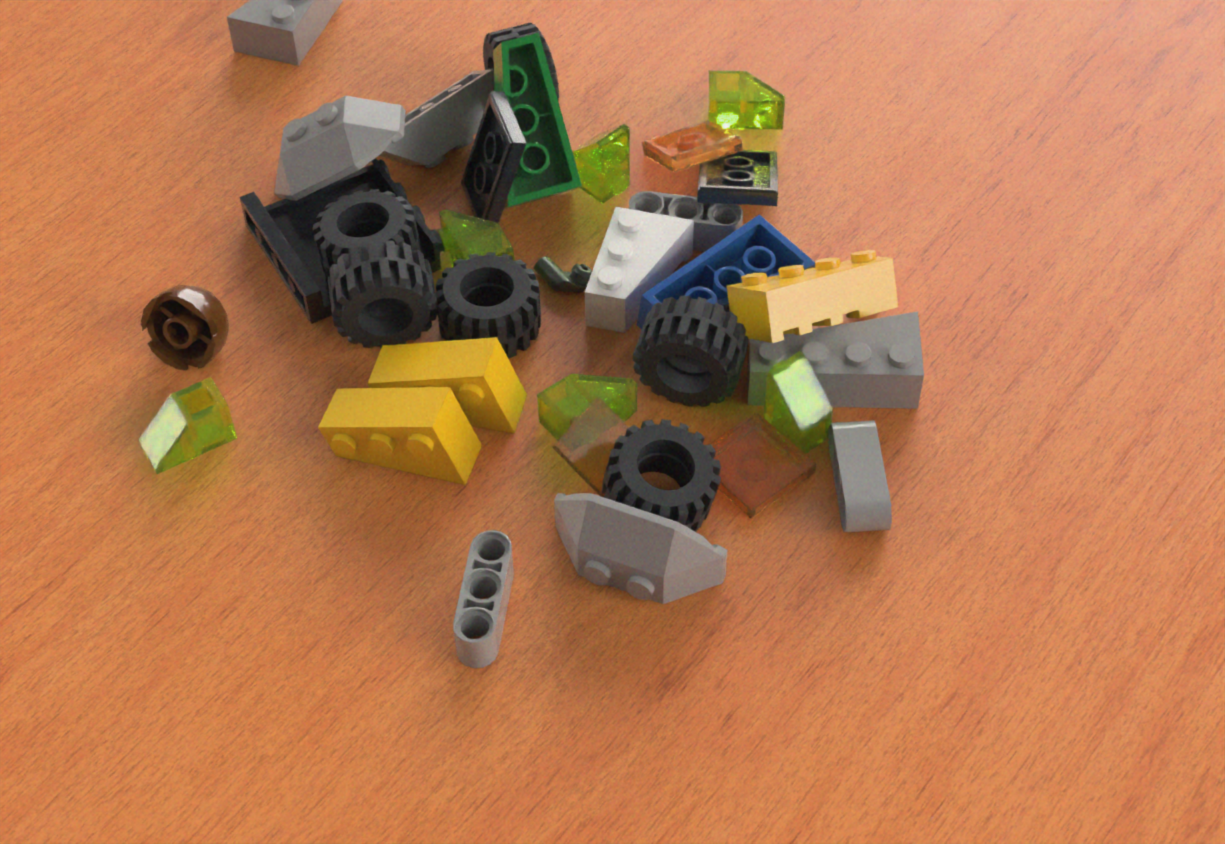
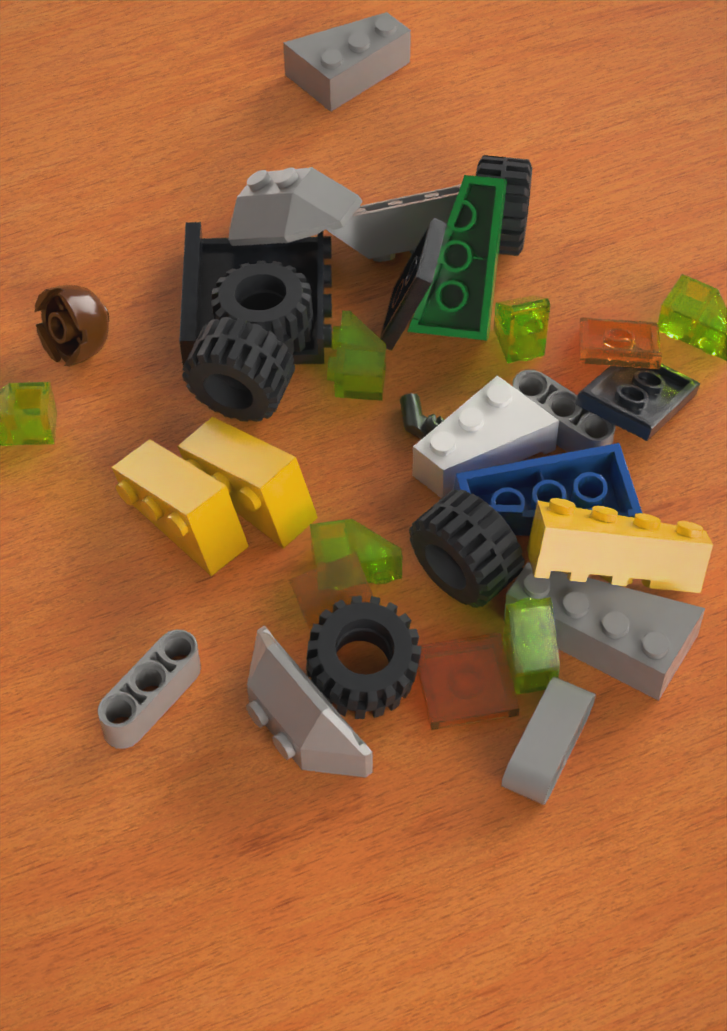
camera: 30 degrees right, 5 degrees up
(489, 300) = (329, 395): black tyre -> none

